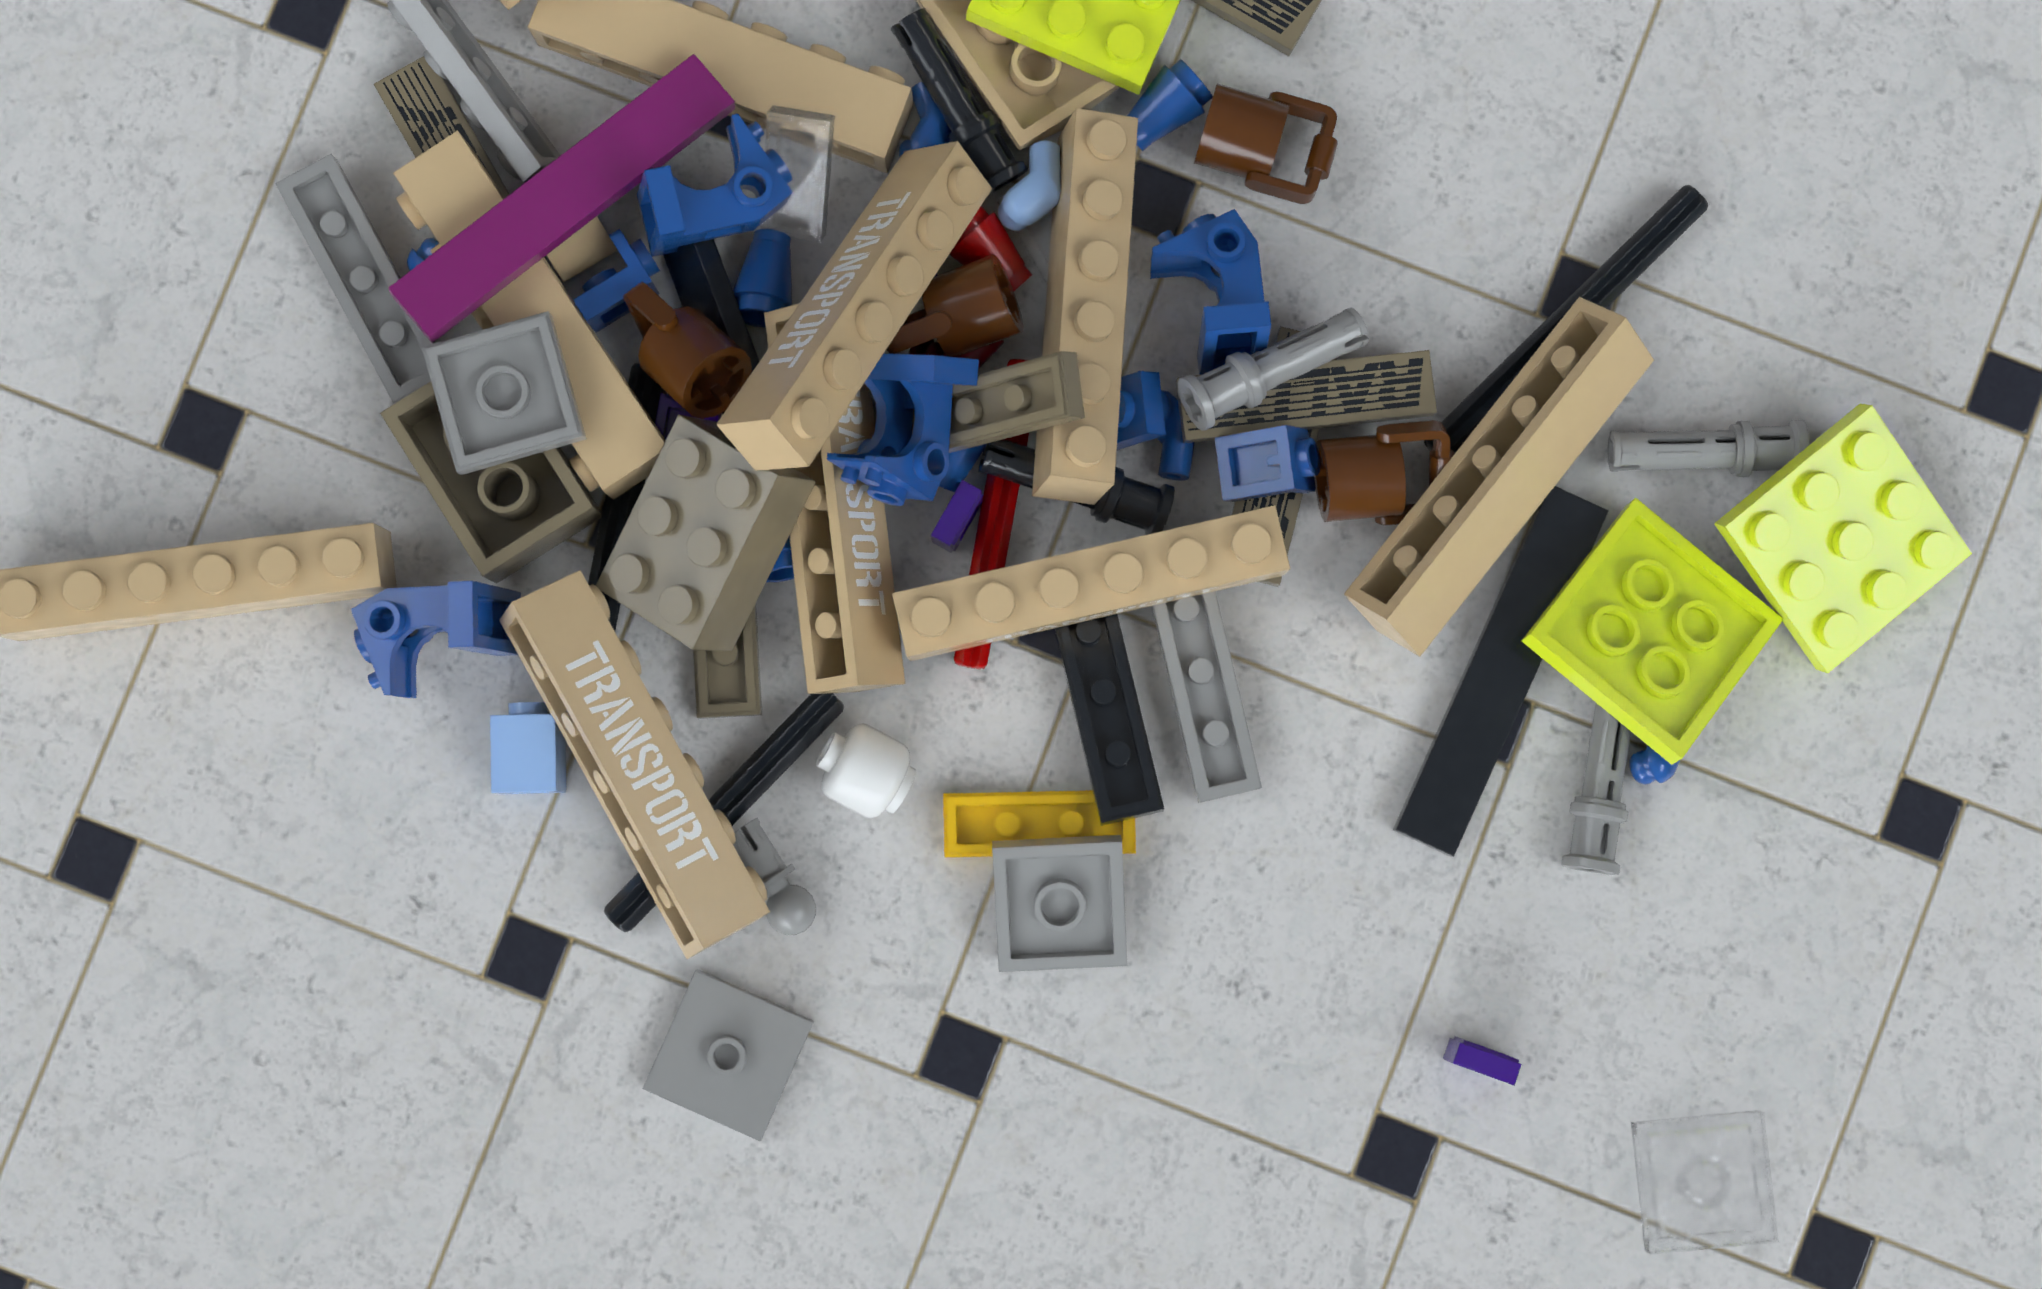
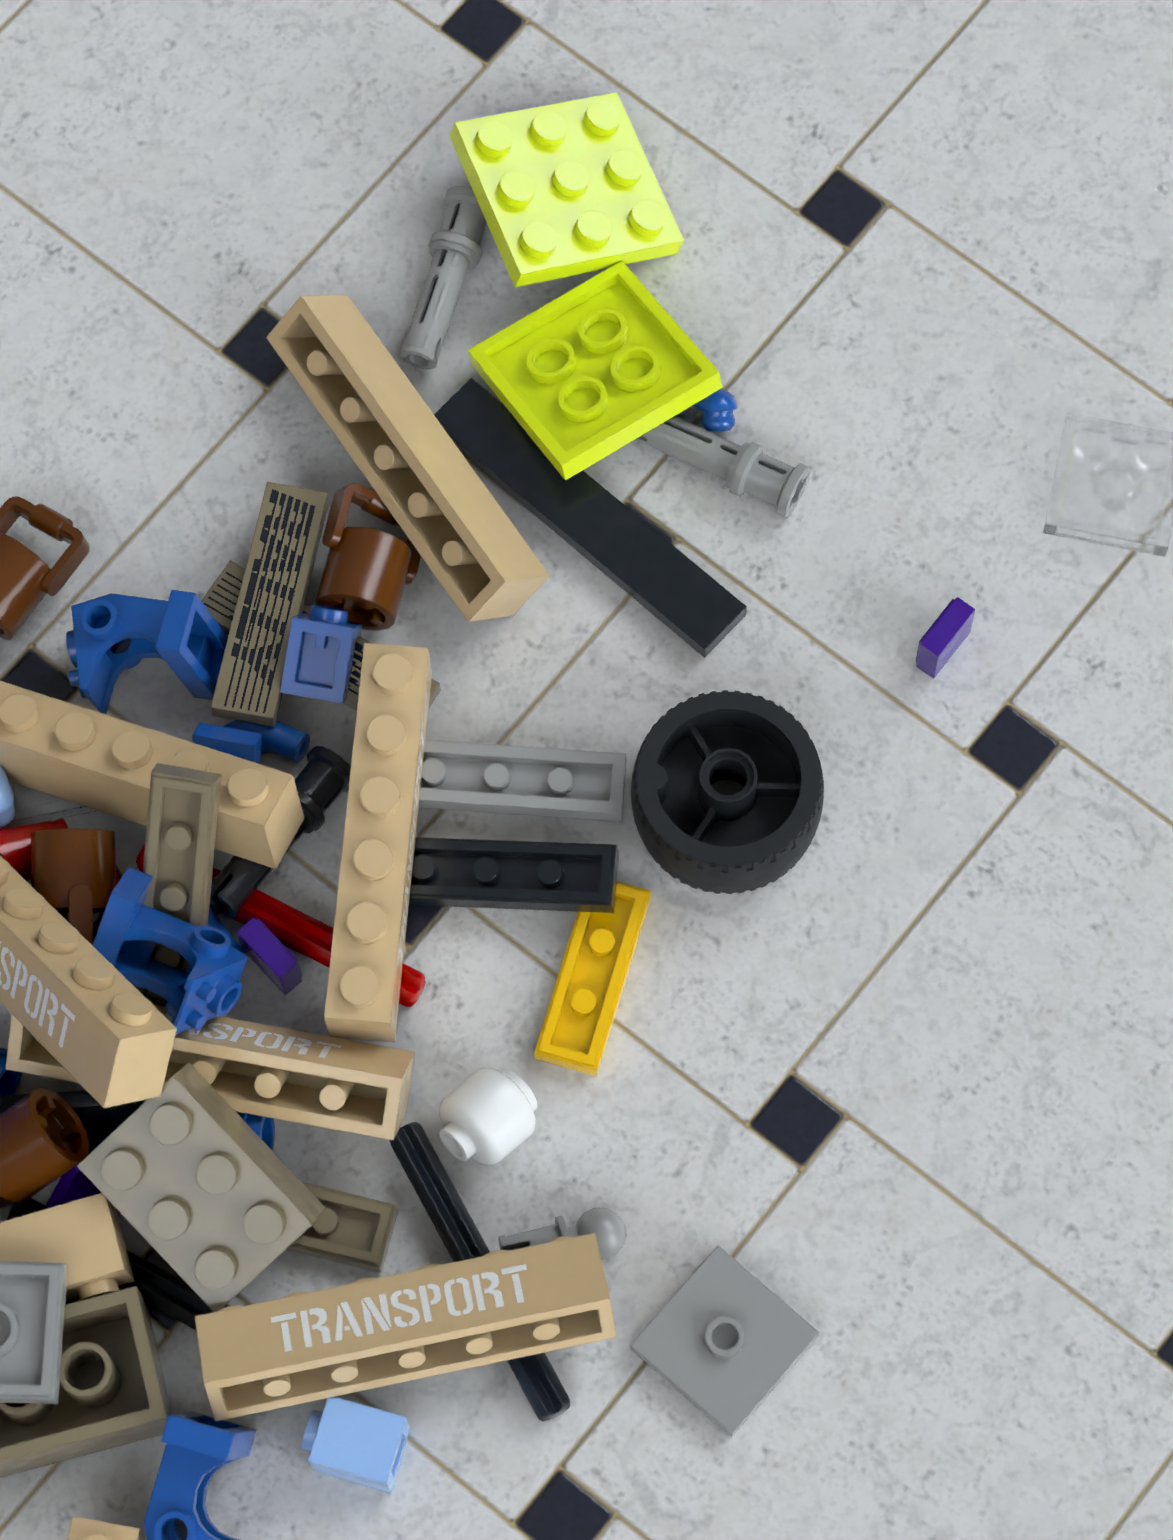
camera: 65 degrees left, 15 degrees down
(1059, 903) = (675, 971): light grey plate -> none
(1201, 908) = (720, 838): none -> black wheel
(1248, 377) = (235, 639): light grey pin -> none
(1599, 288) = (261, 317): black axle -> none

